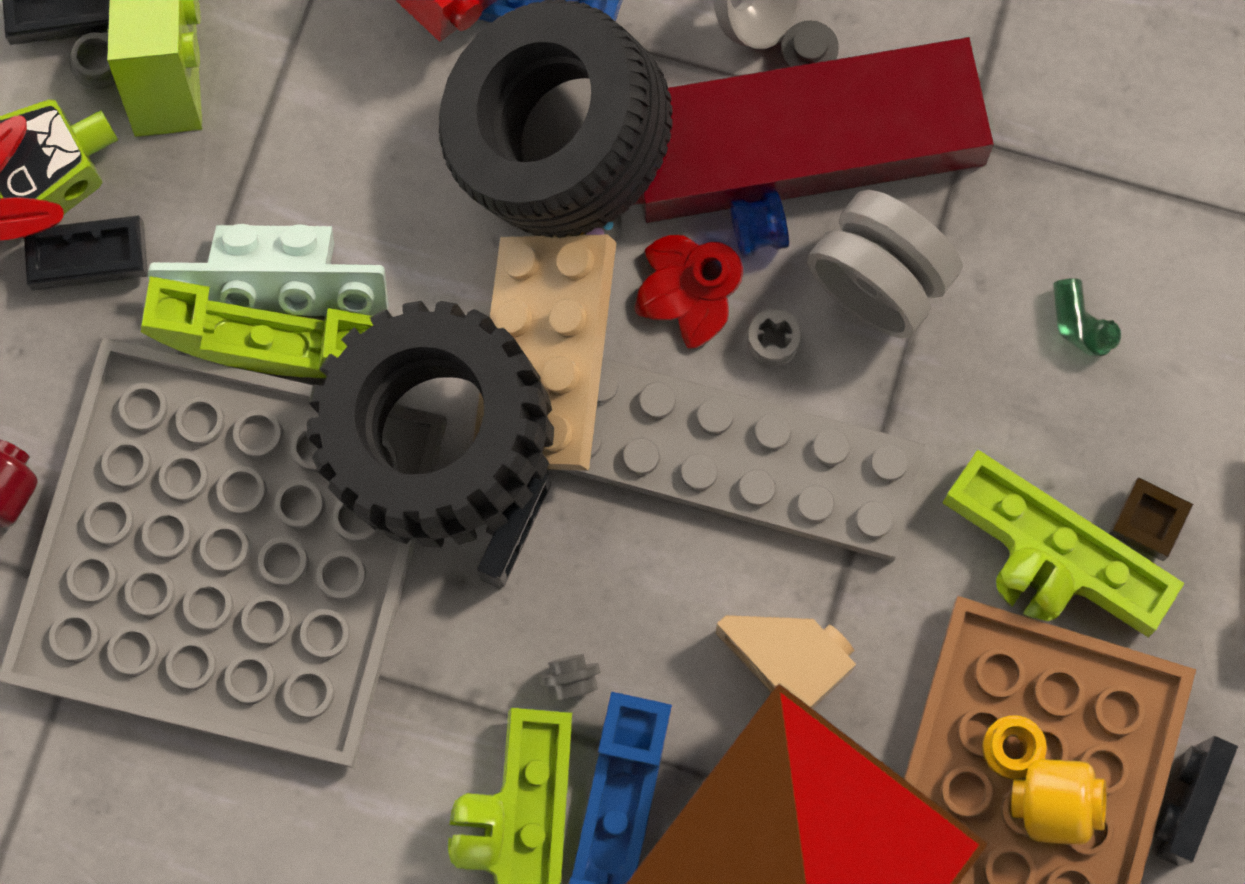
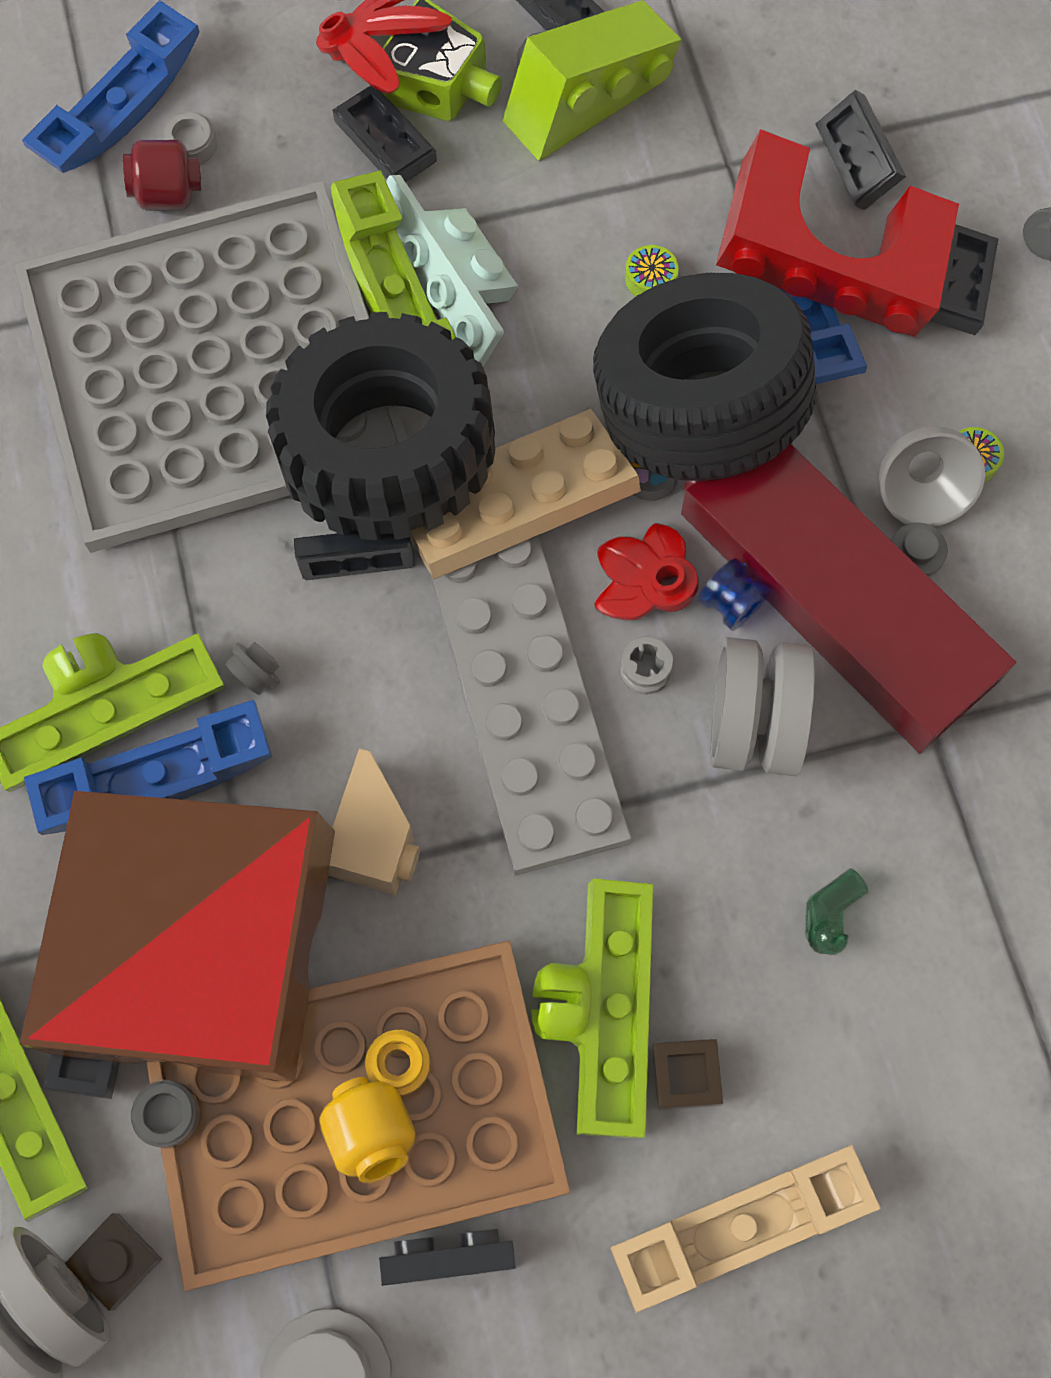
camera: 55 degrees right, 5 degrees down
(393, 101) = (649, 267): none -> tile

